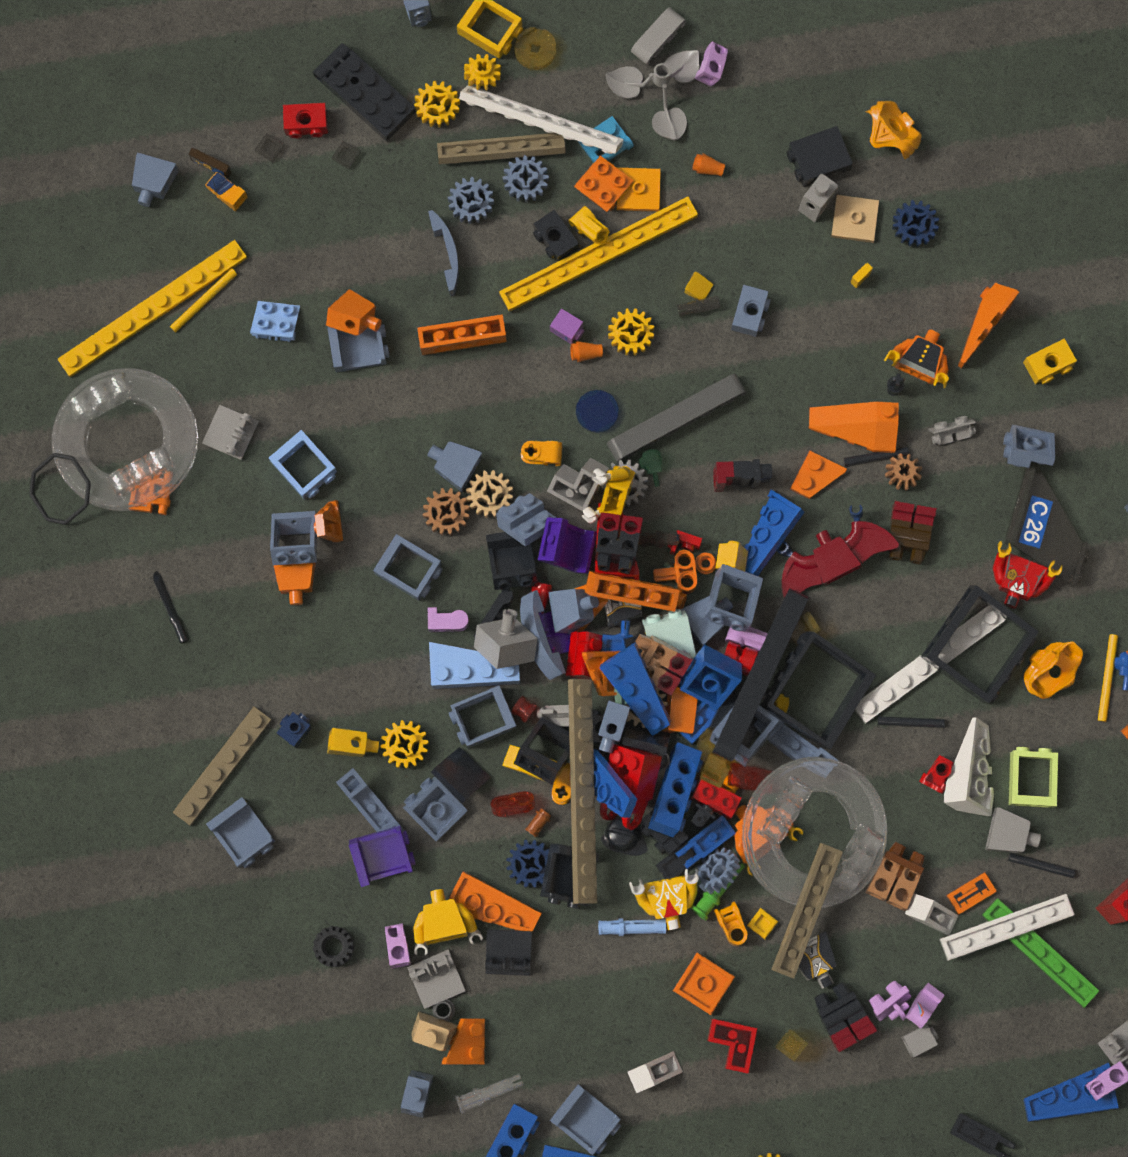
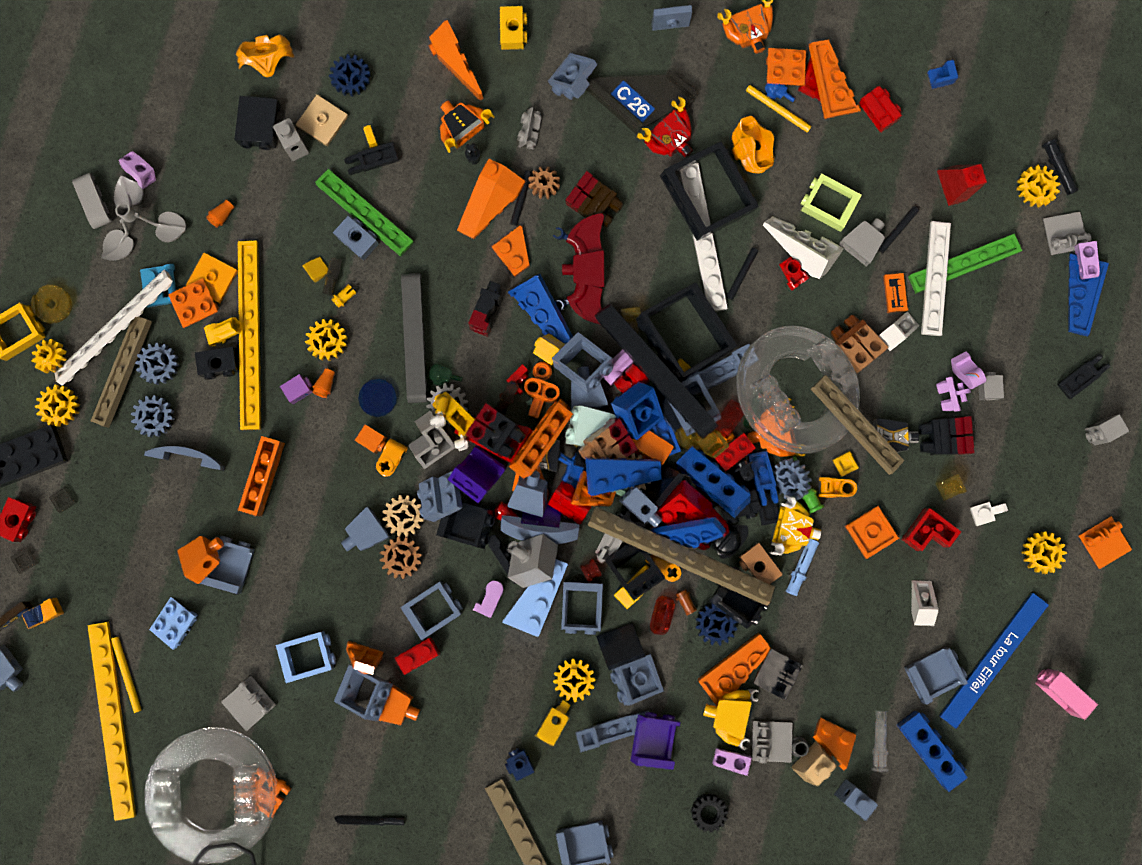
camera: 65 degrees left, 5 degrees up
(355, 575) = (417, 656): none -> red brick
(551, 424) = (371, 439): none -> orange brick
(621, 871) = (757, 553): none -> medium nougat brick
(682, 326) = (342, 297): none -> yellow pin
(780, 306) = (364, 212): none -> bright green plate
(782, 1095) = (985, 513): none -> white plate
(841, 288) = (373, 158): none -> black hinge

